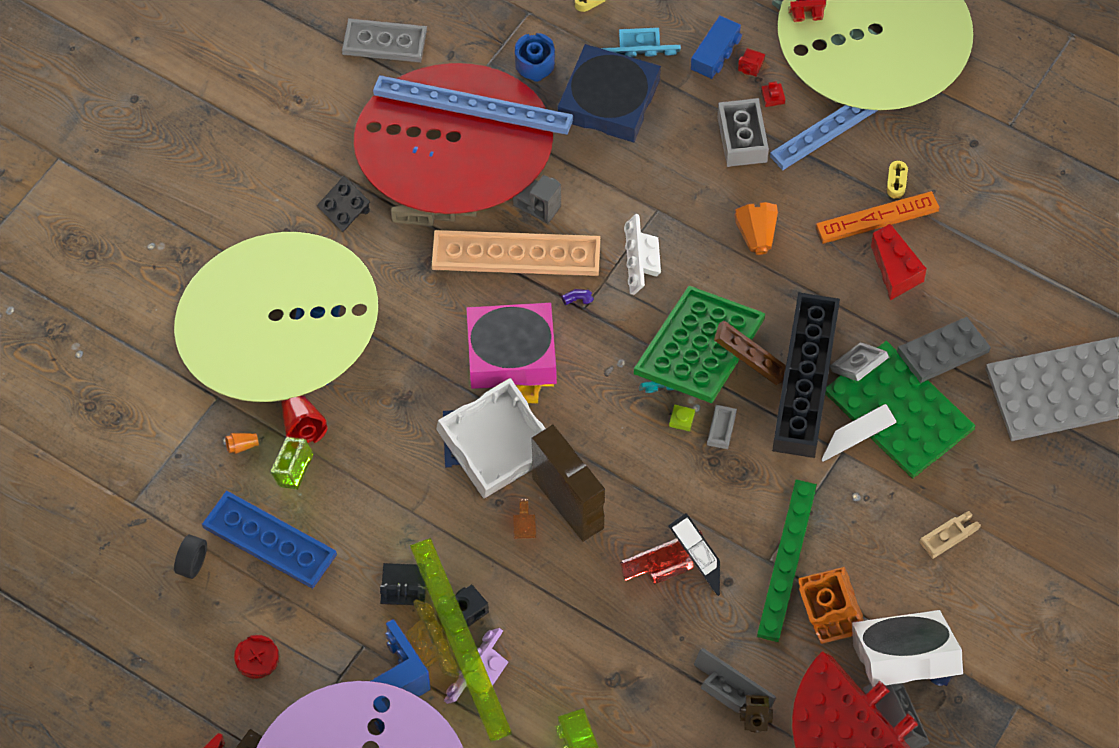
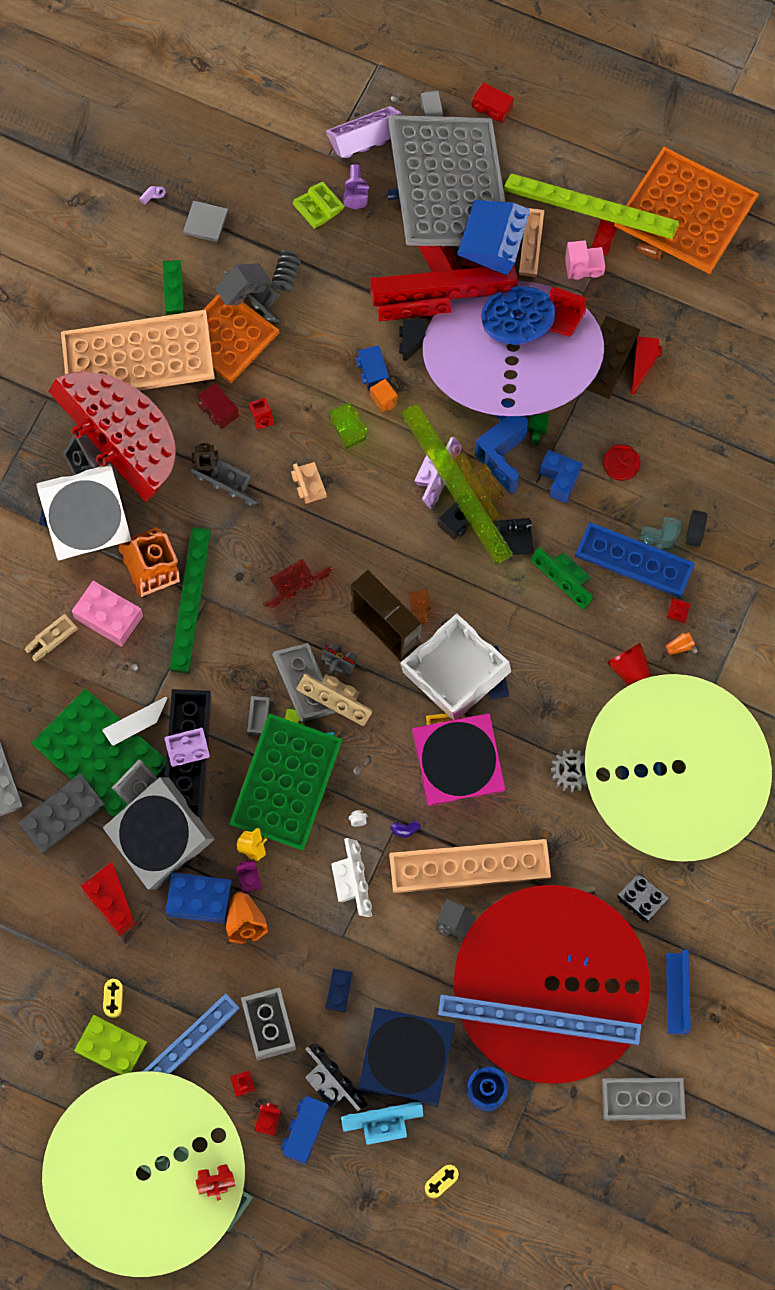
camera: 170 degrees right, 10 degrees up
(226, 559) = (664, 538): none -> clear light blue brick
(233, 481) = (678, 610): none -> red tile
(292, 463) = (630, 624): clear neon green brick -> none
(328, 119) = (678, 993): none -> blue fence
(328, 643) = (563, 472): none -> blue brick
(350, 532) = (565, 575): none -> green bracket
(391, 327) = (566, 776): none -> light grey gear
(616, 465) = (338, 662): none -> dark grey hips
(626, 310) = (358, 818): none -> white plate
(633, 430) = (335, 696): none -> tan bracket
(634, 676) = (309, 482): none -> light nougat bracket
(667, 161) = (339, 990): none -> dark blue plate
(667, 451) = (292, 665): none -> light grey tile
(685, 85) = (330, 1081): none -> black bracket
(698, 550) = (267, 590): sticker -> none
(743, 294) = (252, 844): none -> yellow piece
(748, 270) = (248, 876): none -> magenta bracket
(750, 352) = (239, 772): reddish brown plate -> none
(802, 252) = (198, 898): none -> blue brick
(805, 379) = (187, 747): none -> lavender bracket
(841, 305) = (158, 833): none -> black tile
(877, 217) = (129, 953): orange tile -> none
(884, 548) = (107, 613): none -> bright pink brick
(901, 139) = (110, 1046): none -> lime plate

